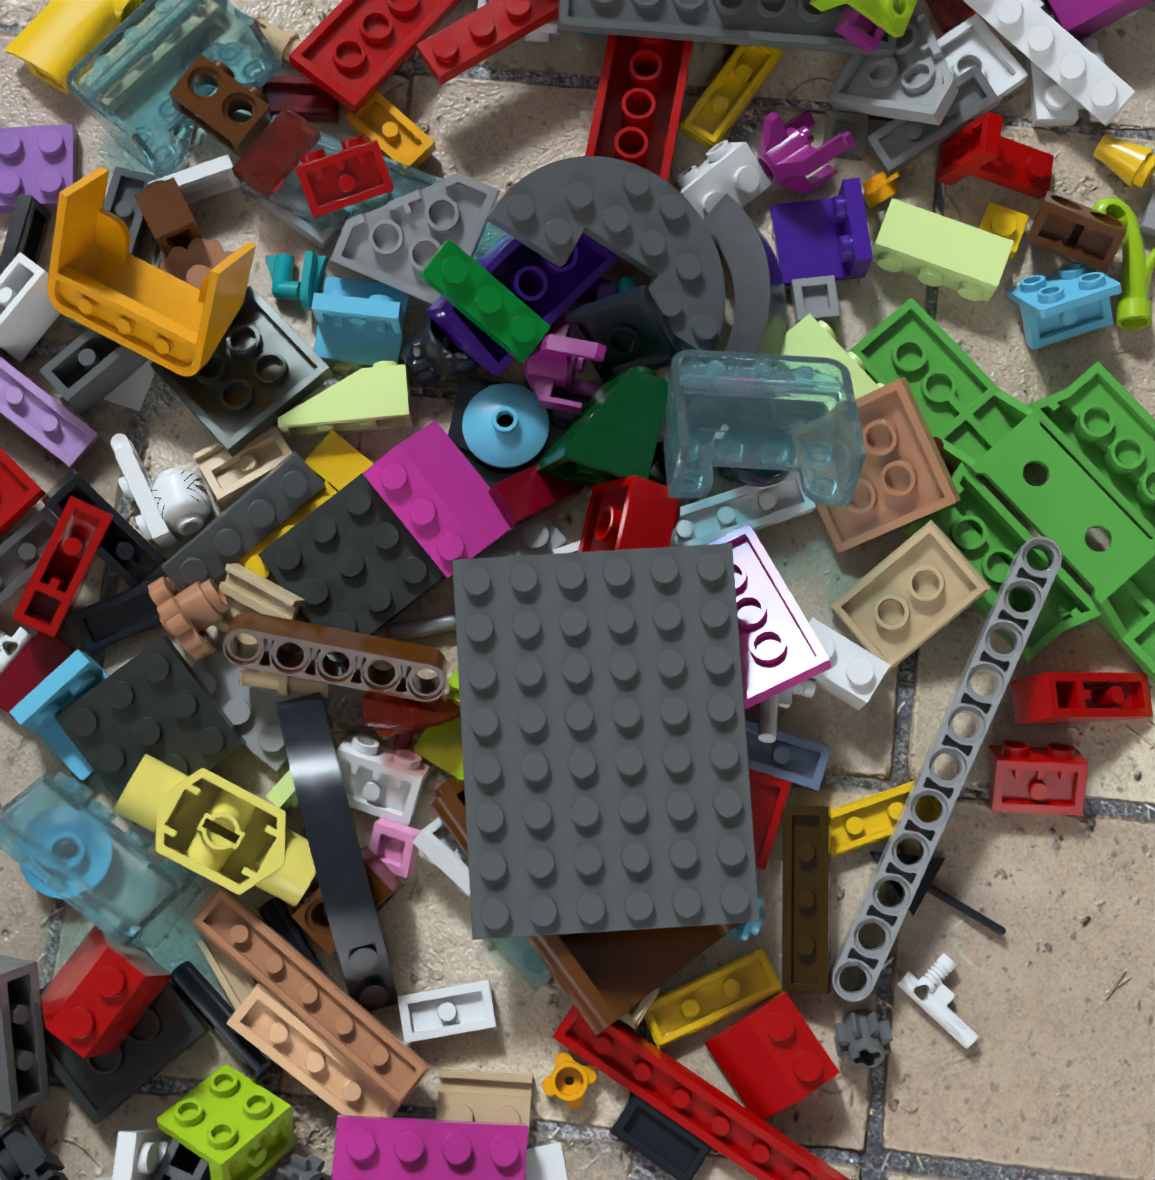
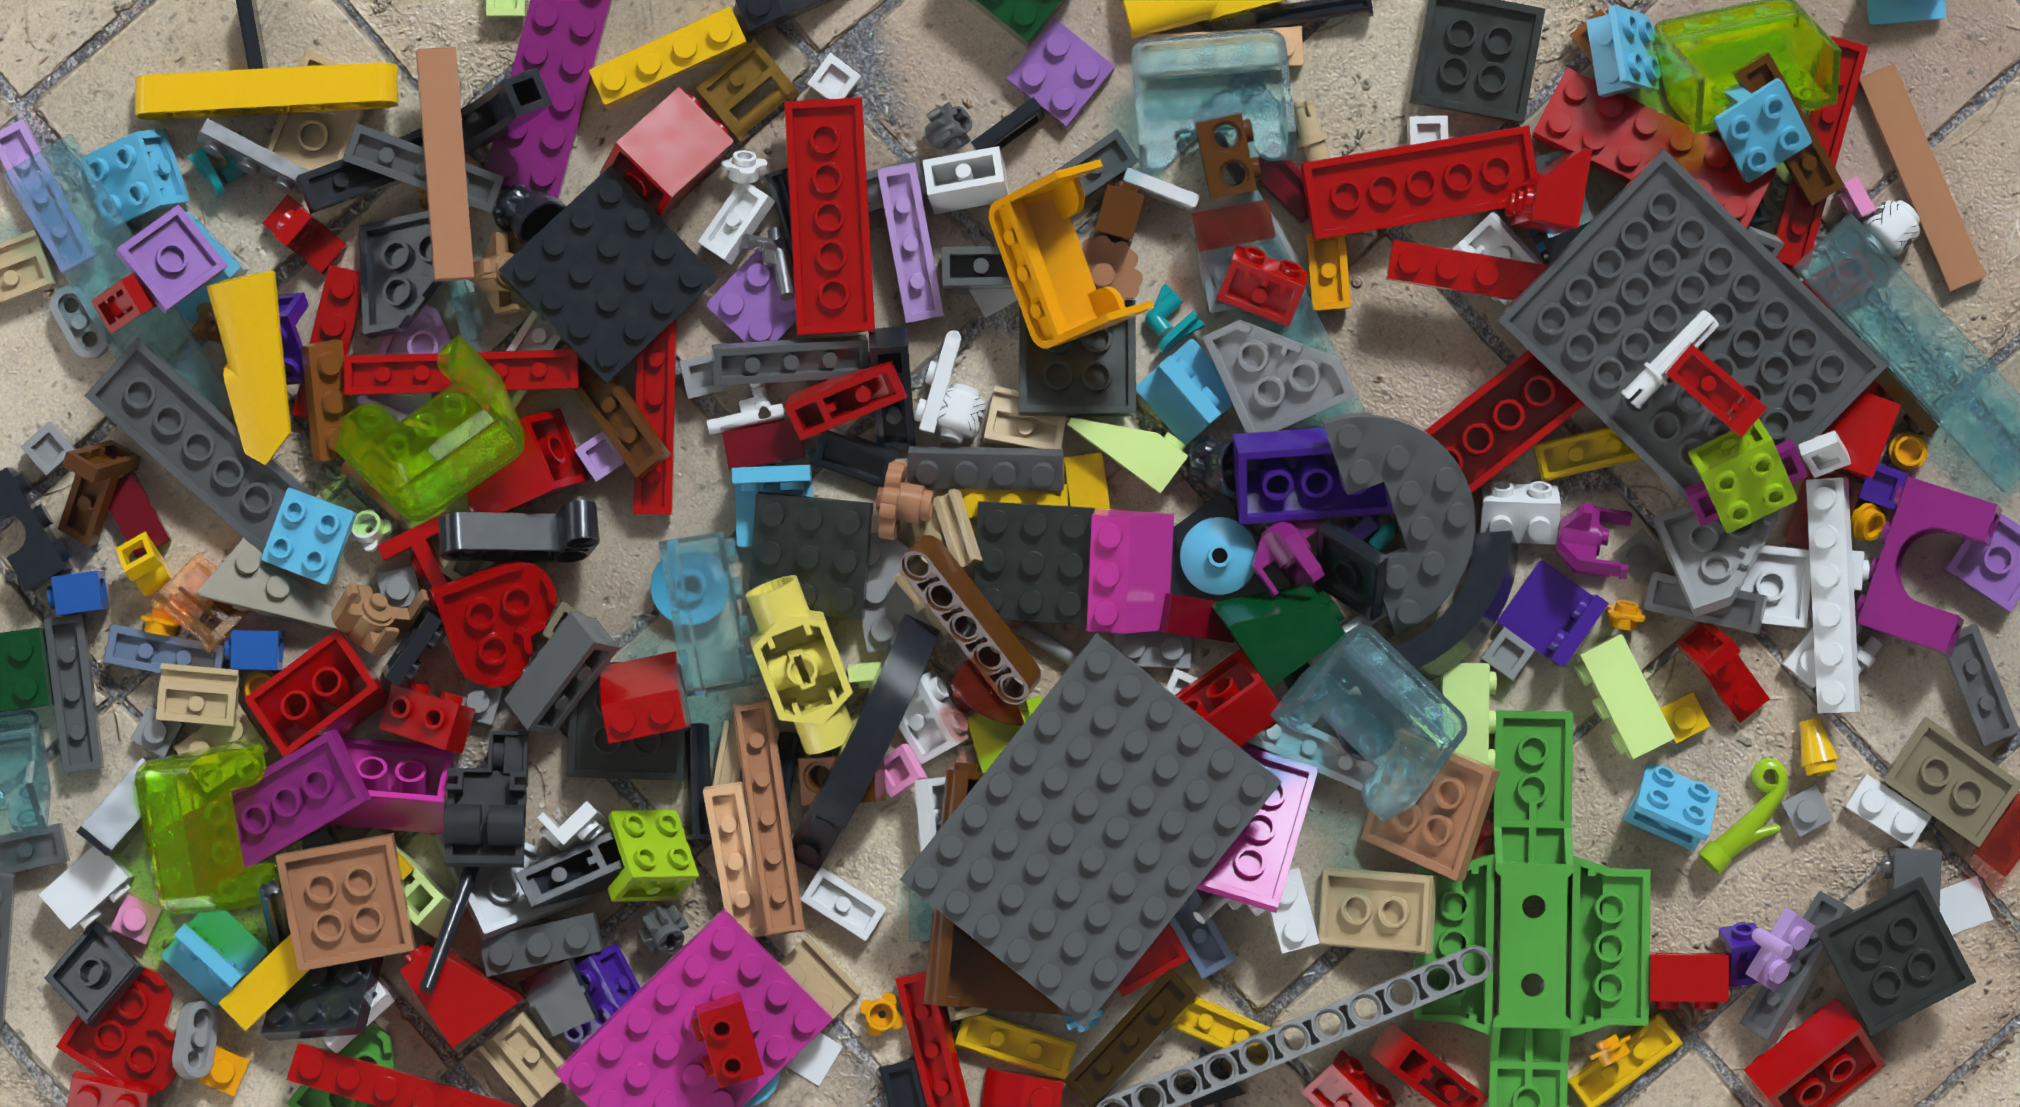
camera: 40 degrees right, 10 degrees up
(484, 300) = (1272, 473): green plate -> none
(1077, 232) = (1726, 769): reddish brown brick -> none

